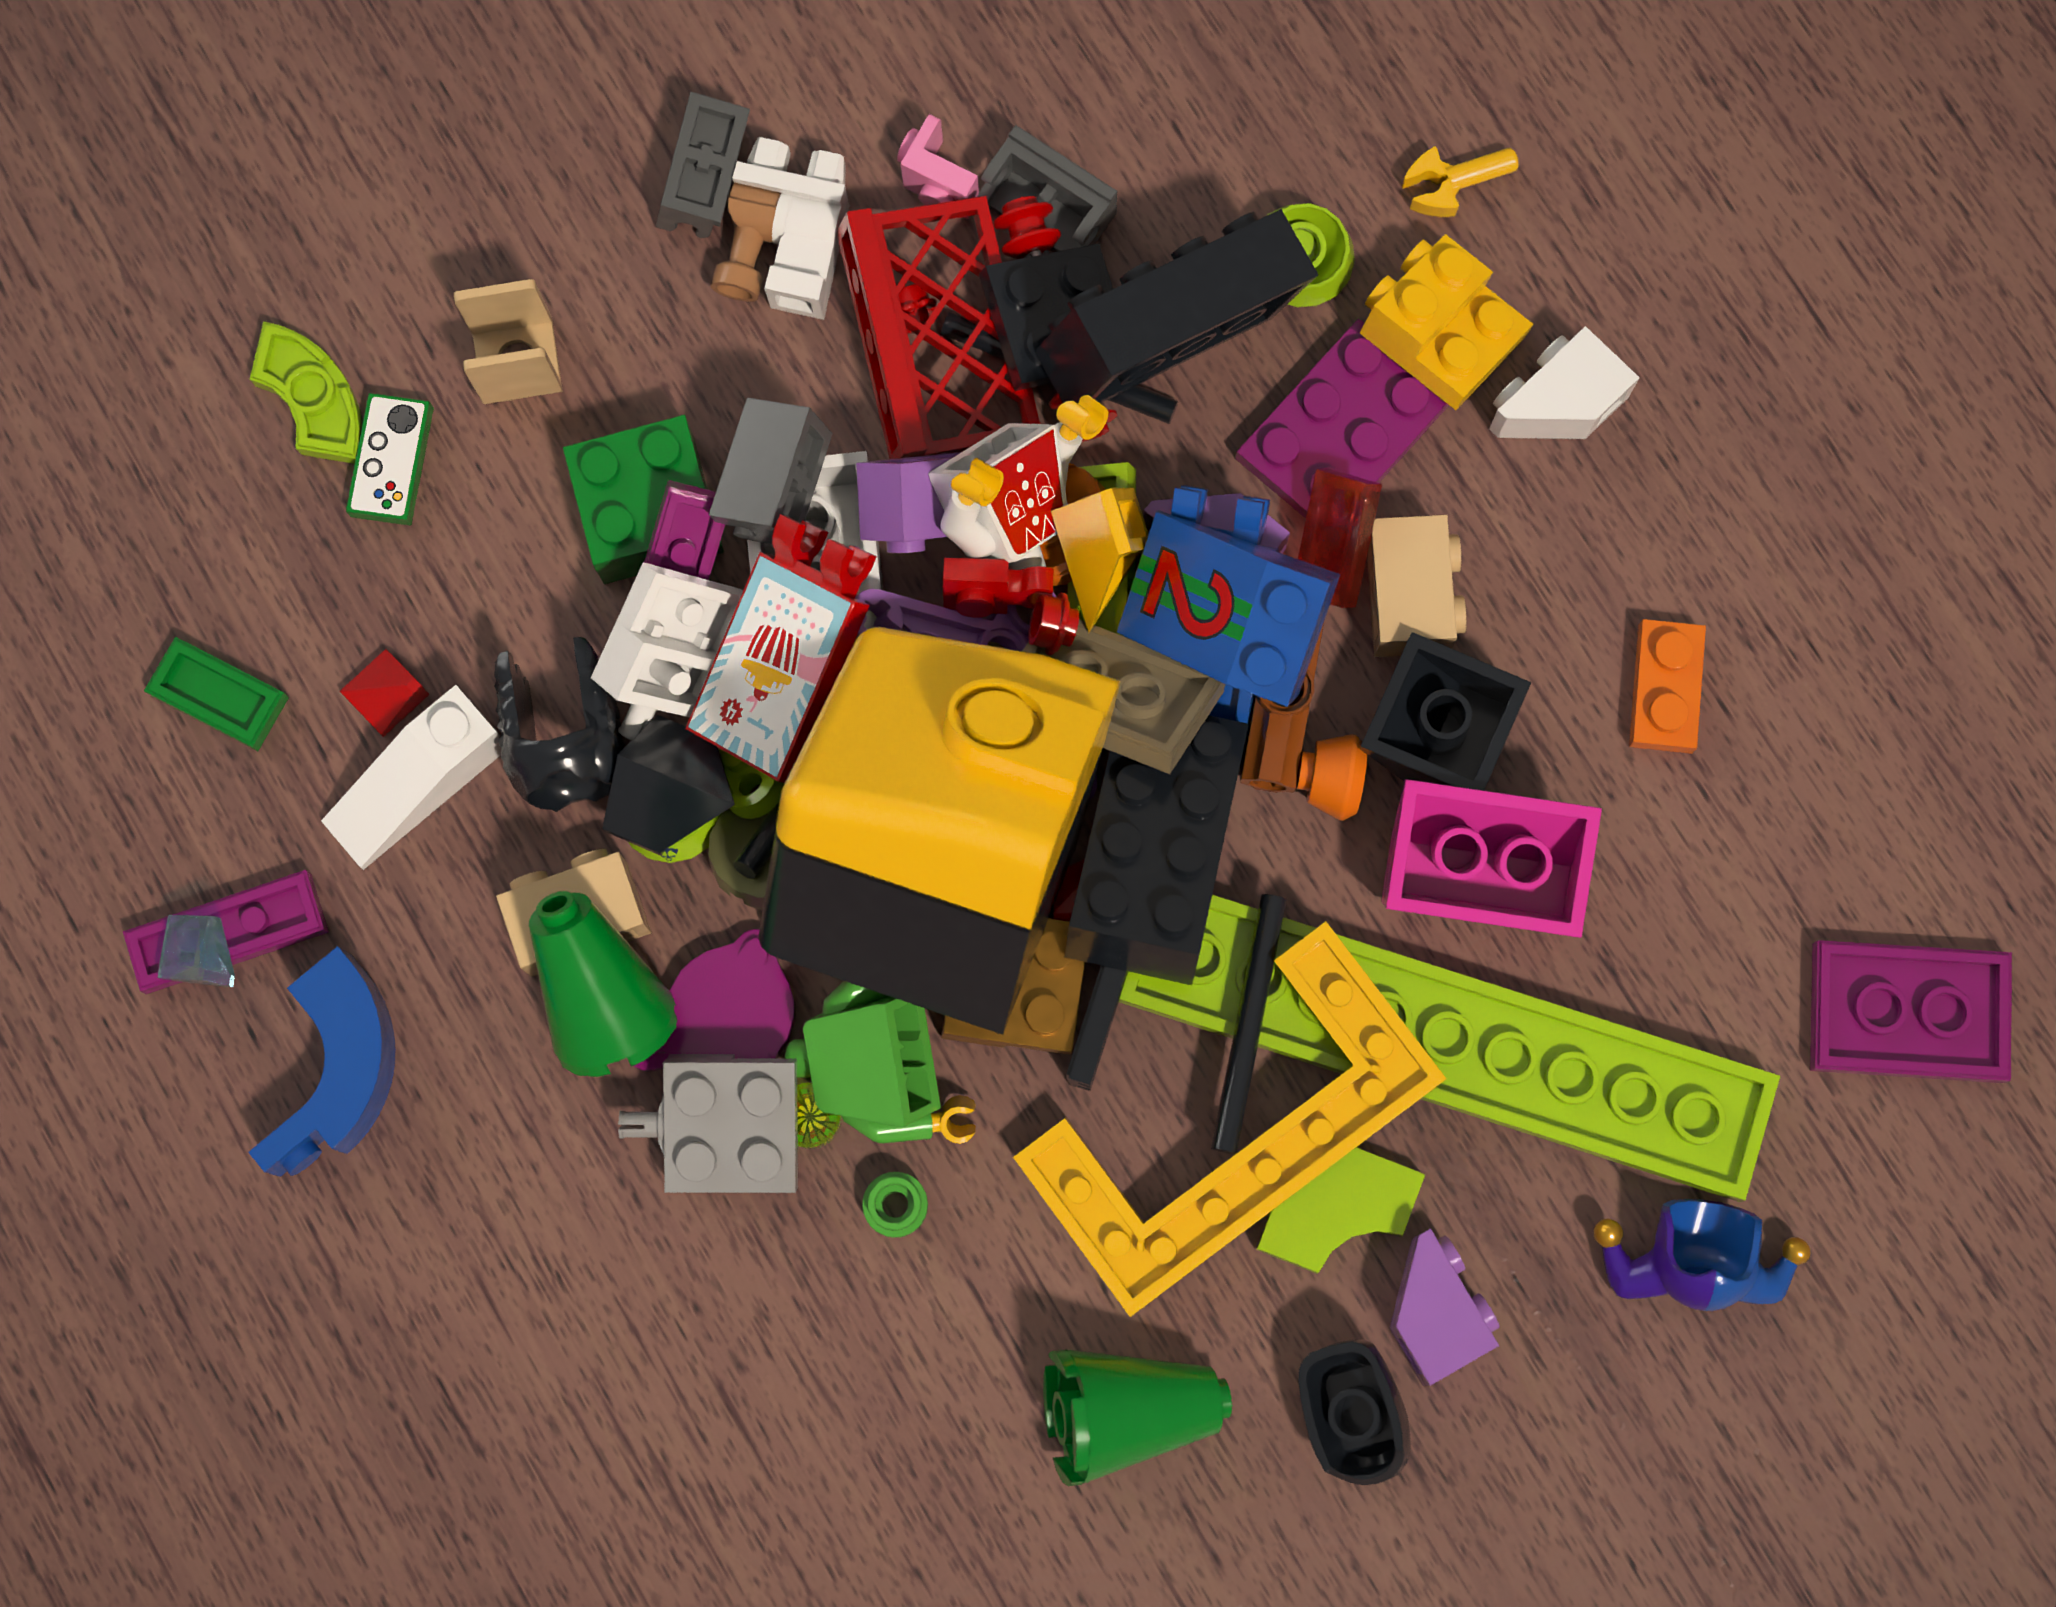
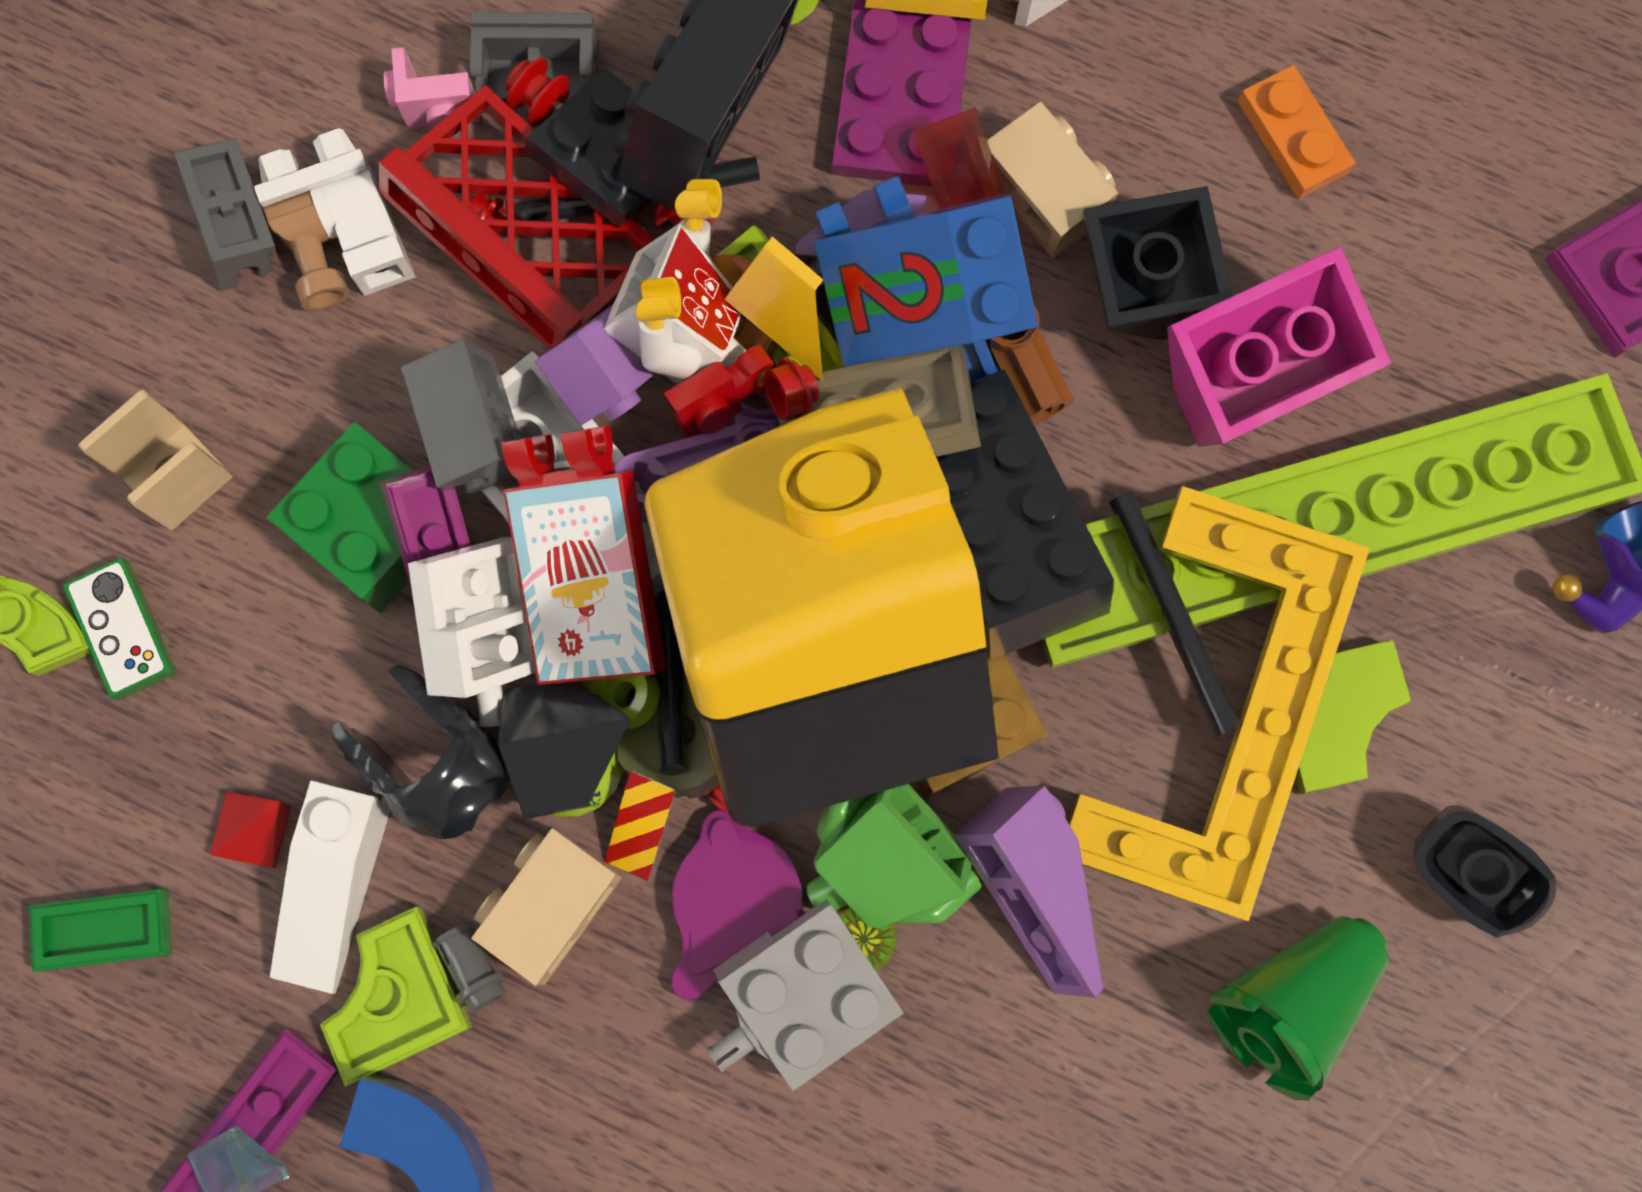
camera: 40 degrees left, 0 degrees up
(410, 909) = (399, 1001): none -> lime tile
(480, 921) = (470, 968): none -> dark grey pin
(596, 988) = (616, 959): green cone -> none
(690, 899) = (639, 825): none -> sticker
(884, 1186) = (1008, 969): bright green plate -> none
(978, 1157) = (1039, 883): none -> medium lavender slope
(1095, 1027) = (1051, 701): black tile -> none
(1334, 775) = (1097, 367): orange cone -> none
(1435, 1315) = (1486, 748): medium lavender slope -> none

